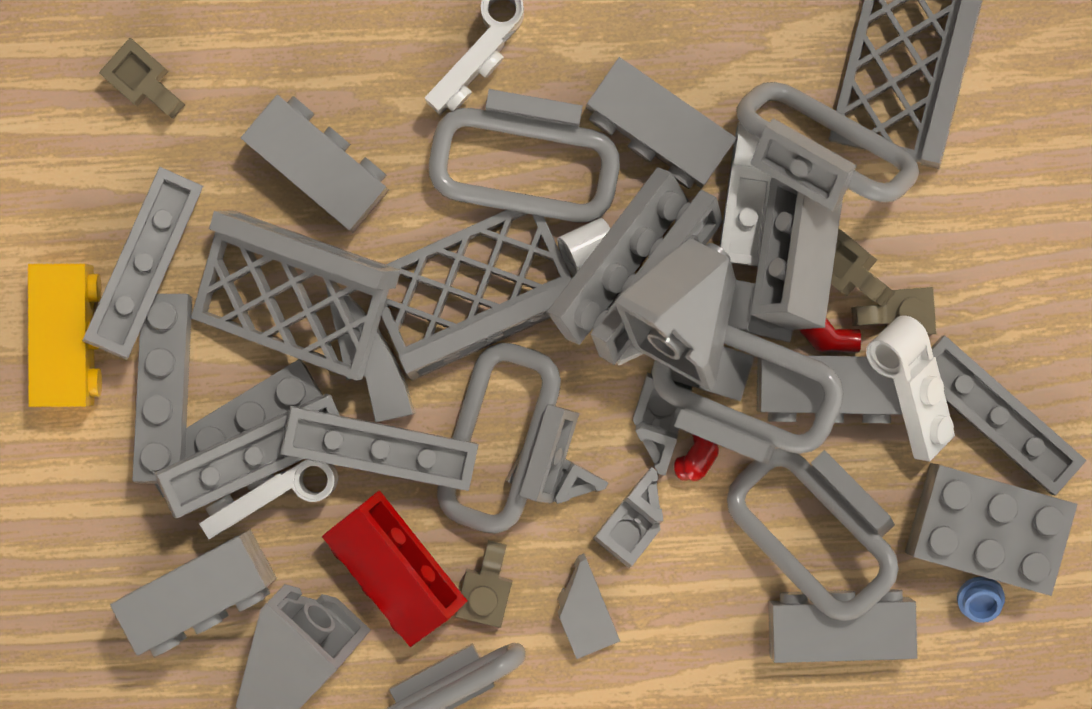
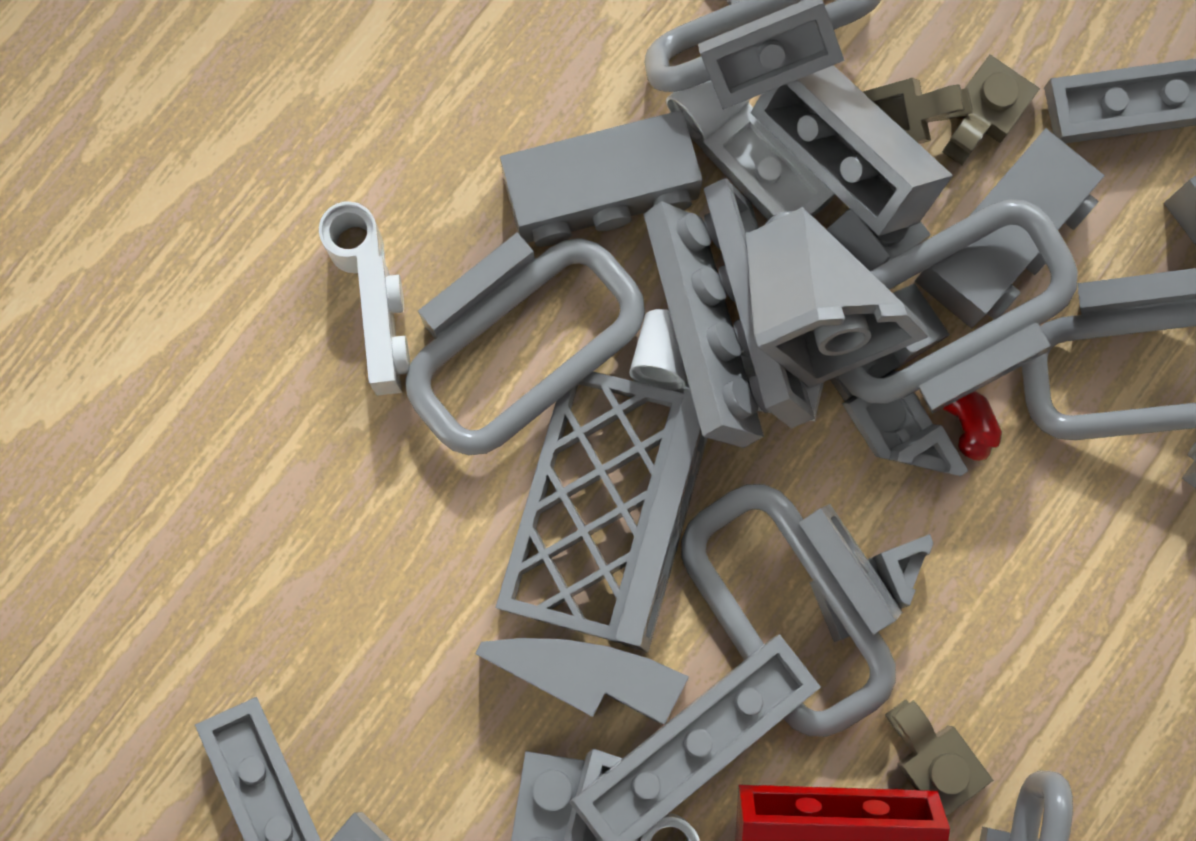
camera: 50 degrees left, 10 degrees down
(138, 76) = (84, 665): dark tan plate -> none
(305, 254) = (422, 646): light grey fence -> none
(316, 161) = (335, 554): light grey brick -> none
(585, 612) = (1048, 675): light grey slope -> none
(633, 521) = (988, 545): light grey slope -> none
(832, 339) = (964, 191): red arm -> none
(907, 357) = (1045, 121): white plate -> none

